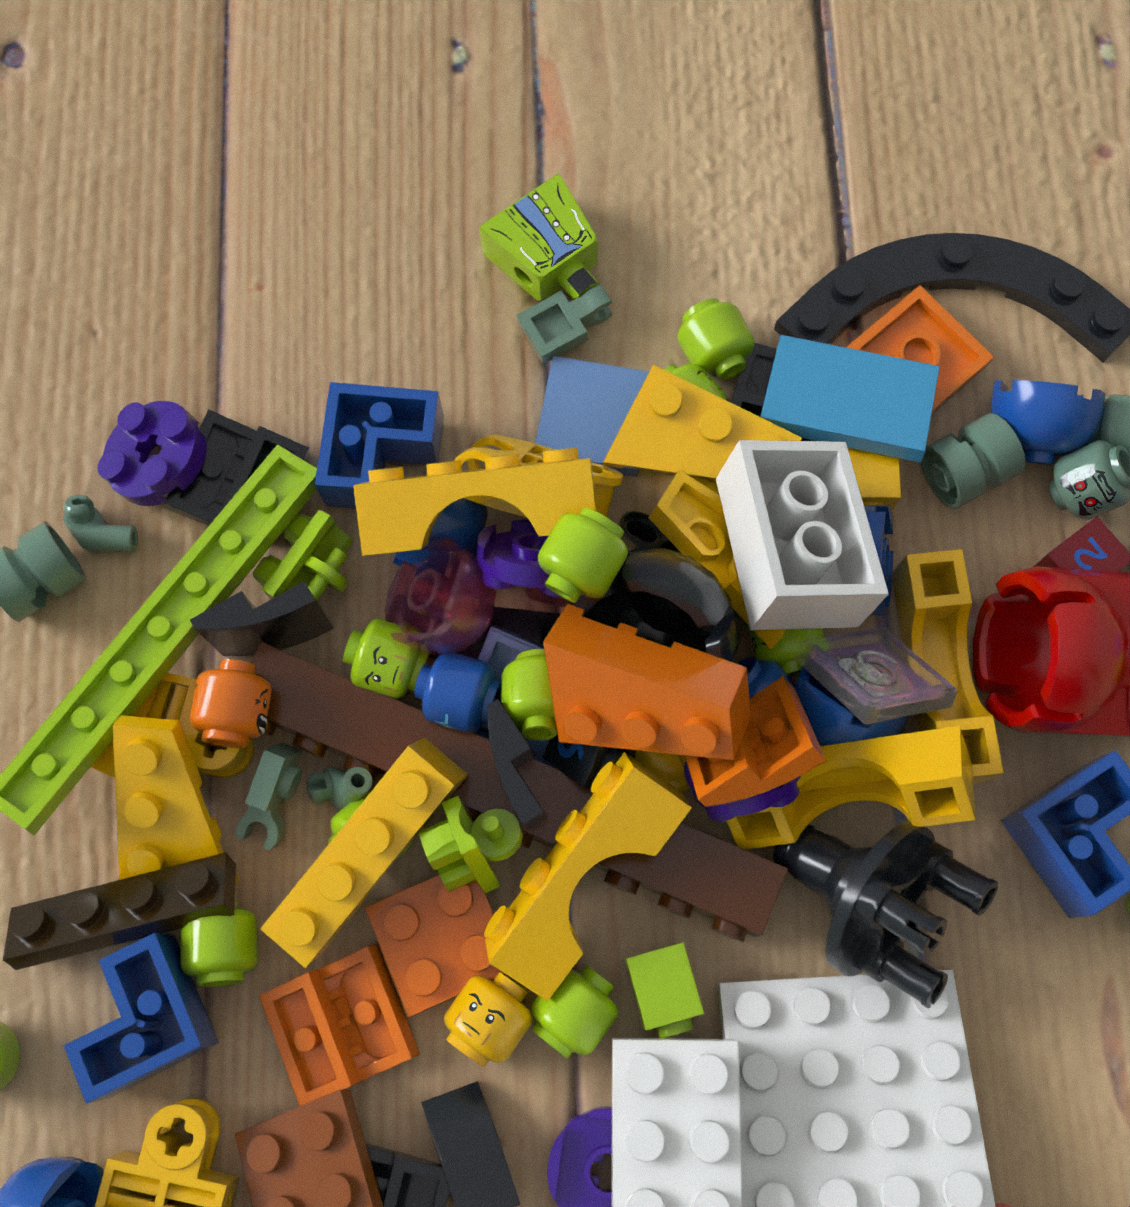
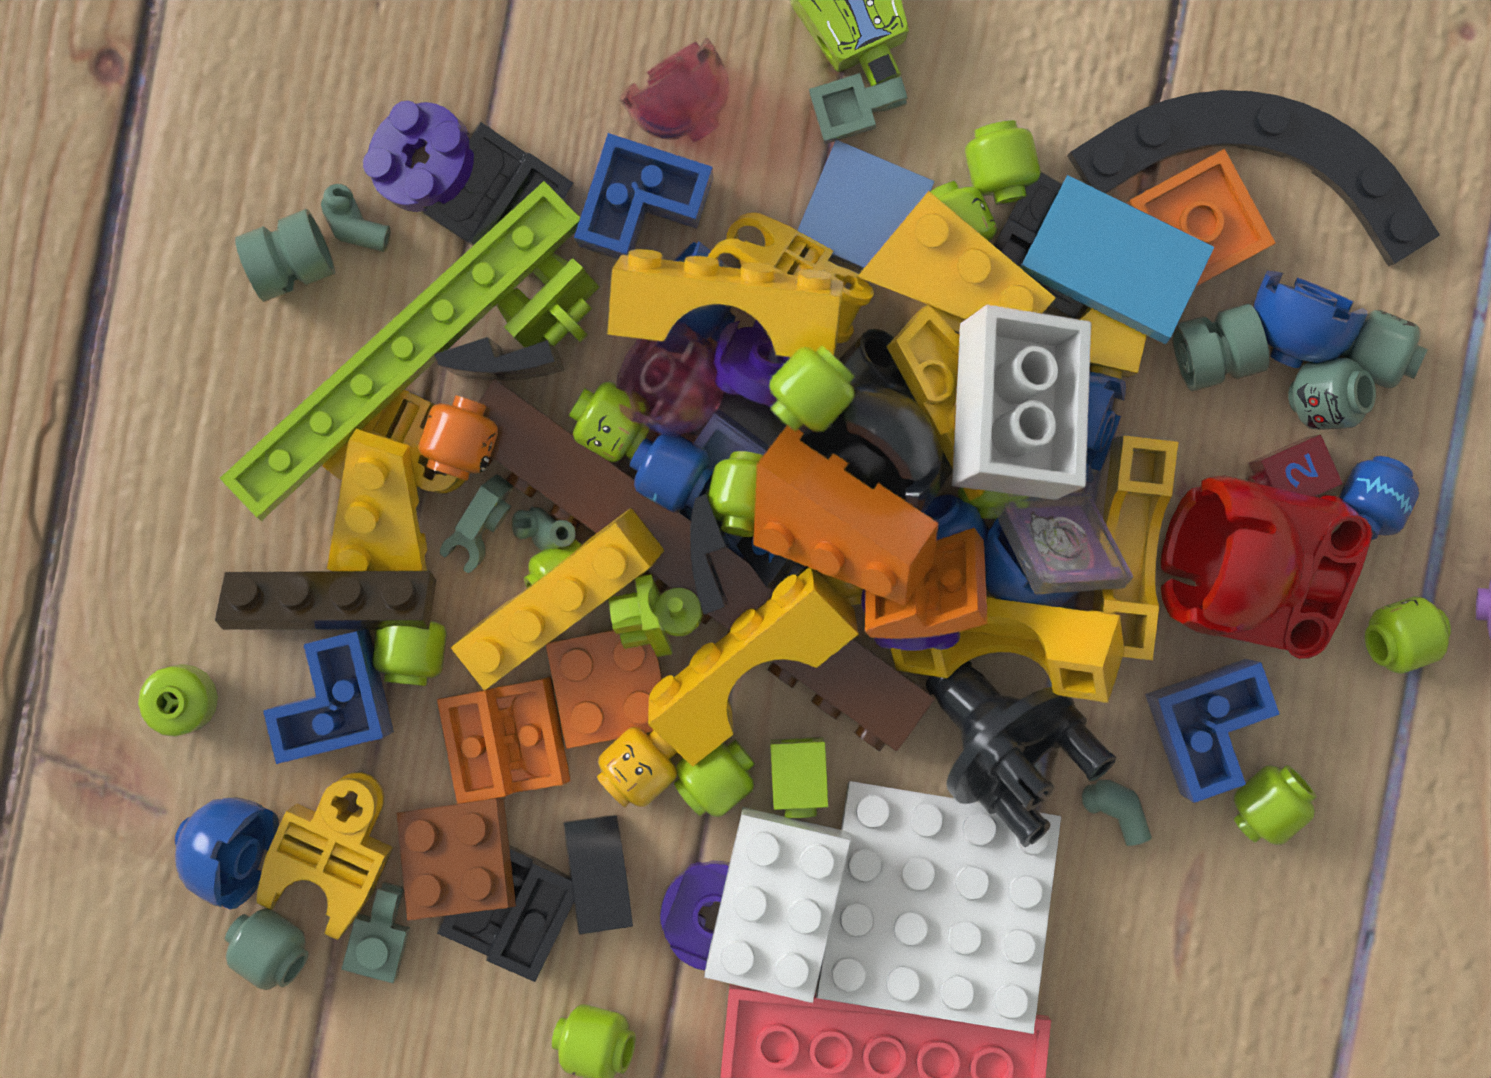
camera: 10 degrees right, 15 degrees up
(396, 342) = (681, 94): none -> clear pink cylinder
(1010, 942) = (1121, 804): none -> sand green arm

